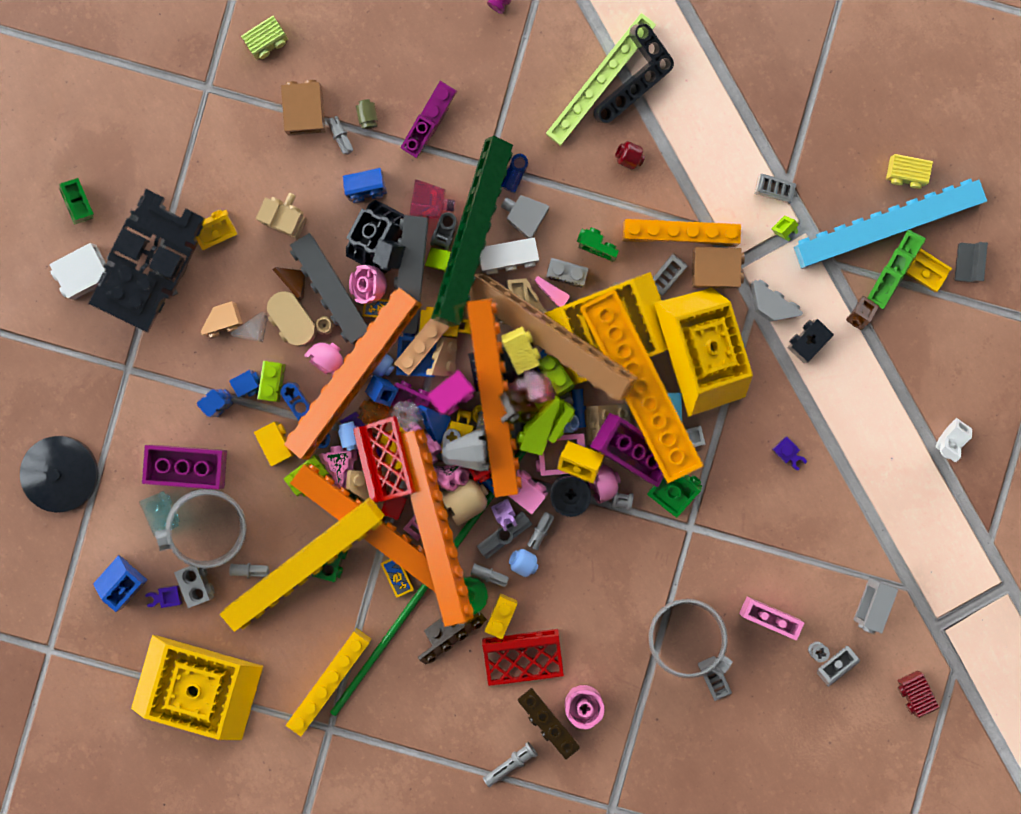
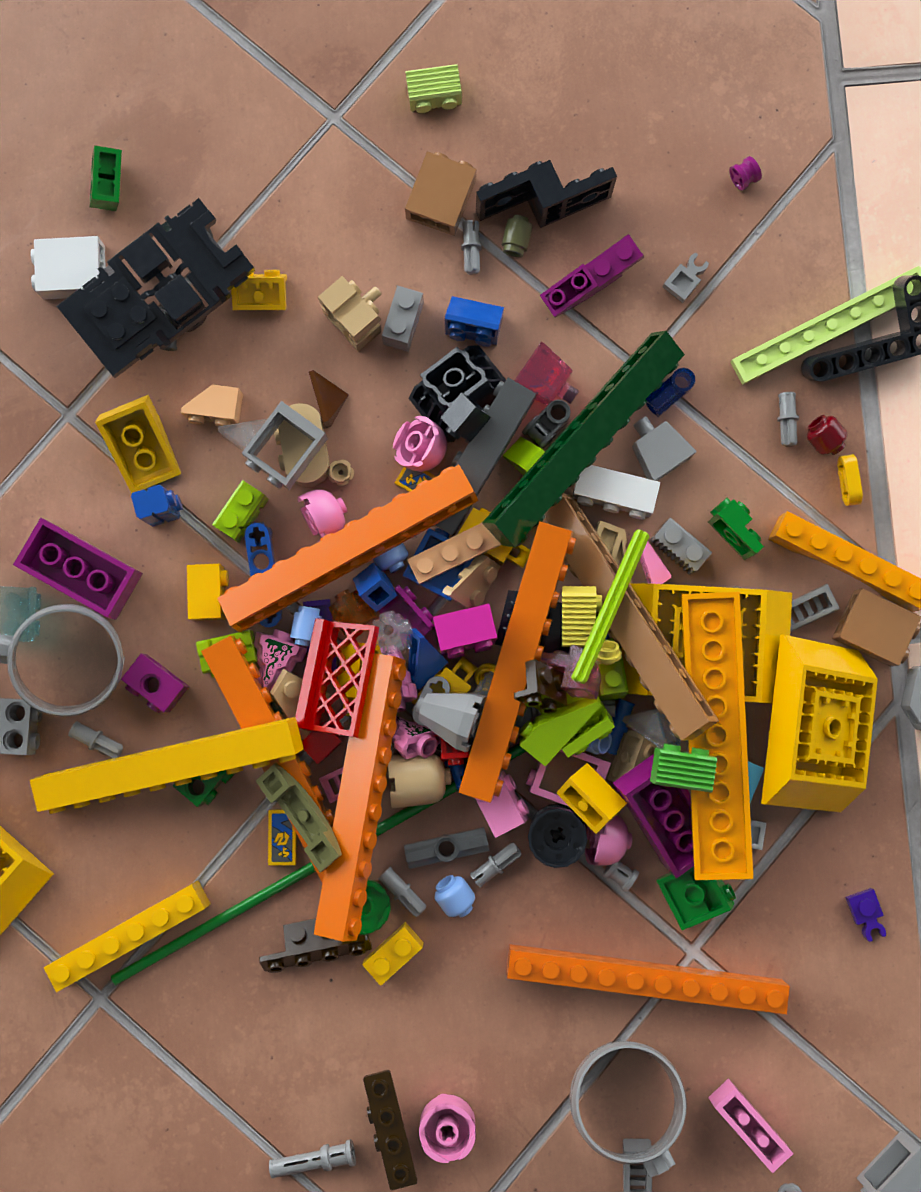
camera: 25 degrees right, 5 degrees down
(183, 367) = (138, 444): none -> yellow slope
(246, 384) = (206, 500): blue brick -> none
(263, 325) = (286, 413): none -> light grey window
(280, 514) = (170, 687): none -> magenta brick
(317, 205) = (402, 318): none -> light grey brick
(330, 288) = (370, 428): dark grey brick -> none
(372, 78) = (544, 193): none -> black bracket
(404, 555) = (303, 813): none -> olive slope
(490, 93) = (684, 280): none -> light grey plate
(504, 513) = (459, 820): lavender plate -> none
(519, 642) = (409, 1002): red fence -> none
(537, 343) = (610, 607): none -> lime axle
(548, 365) = (609, 653): none -> light yellow plate
(600, 155) = (788, 418): none -> light grey axle
(600, 399) = (652, 726): none -> clear slope
(628, 417) = (683, 769): none -> bright green brick
(657, 178) = (850, 480): none -> yellow beam
(668, 558) = (647, 979): none -> orange brick

